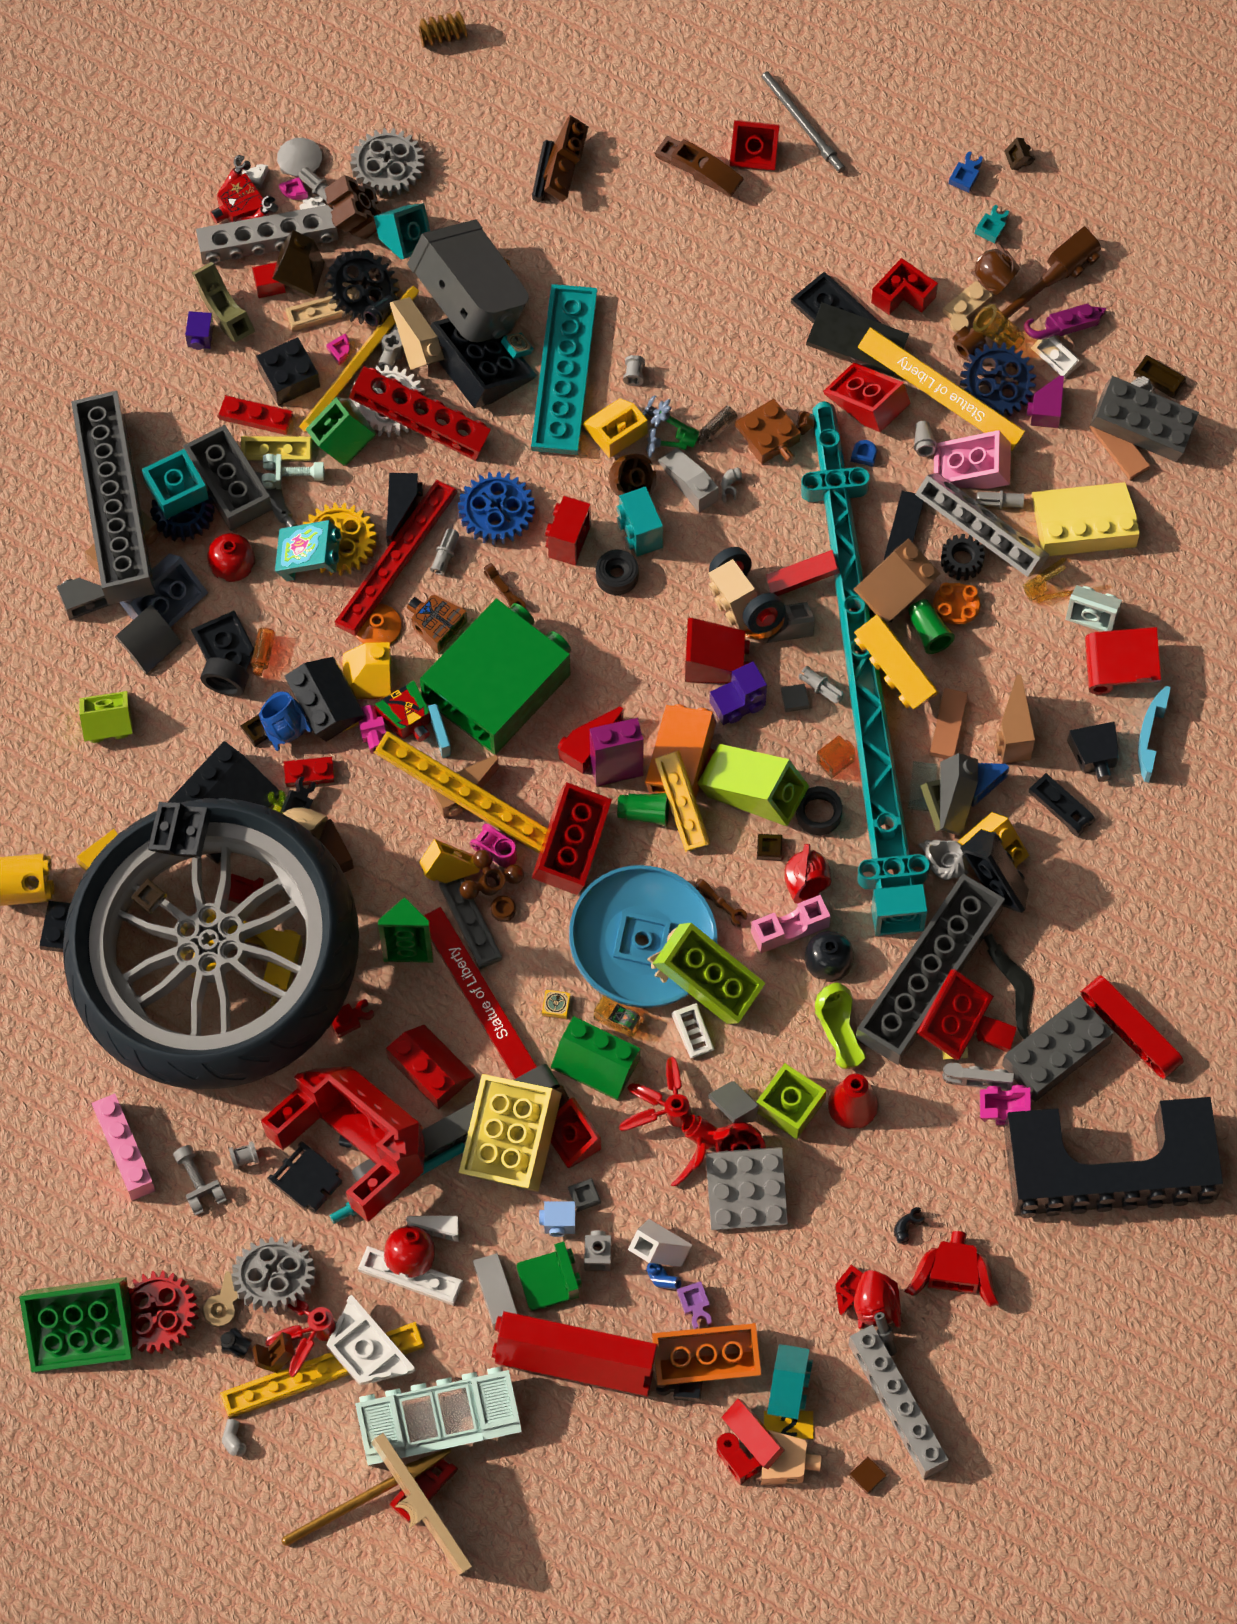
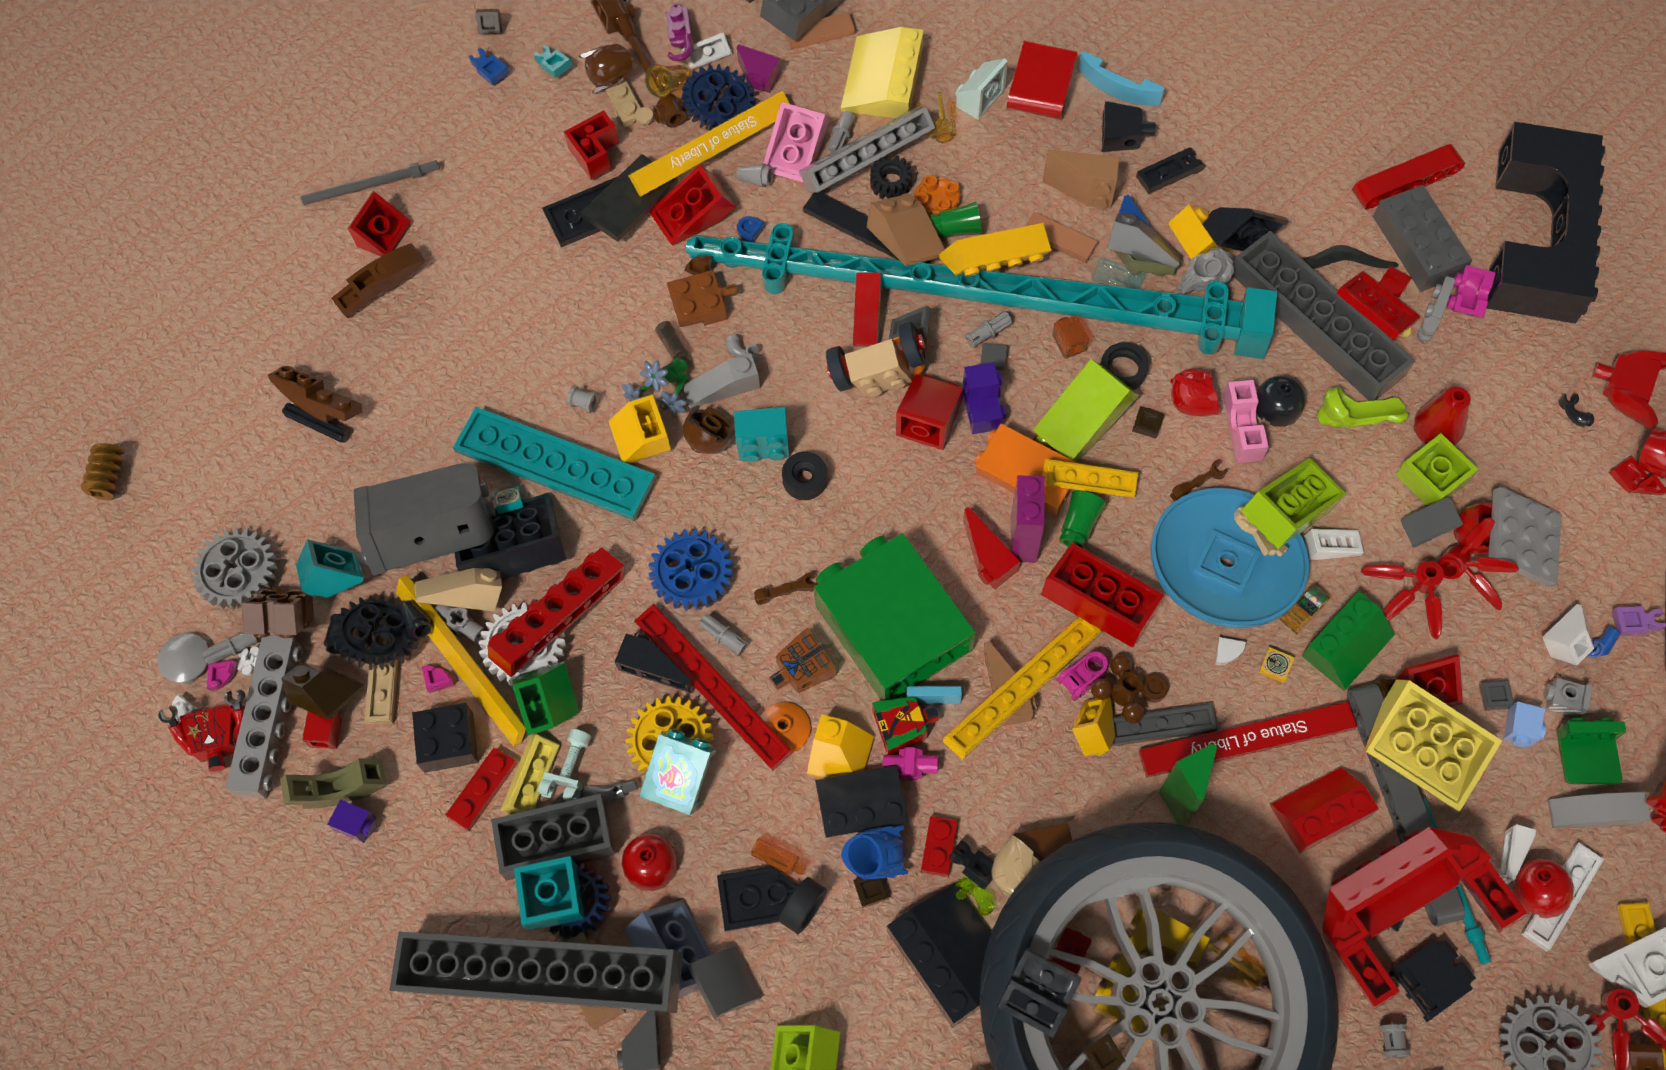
camera: 70 degrees left, 0 degrees up
(557, 961) = (1228, 650): none -> white tile
(568, 530) = (747, 503): red brick -> none

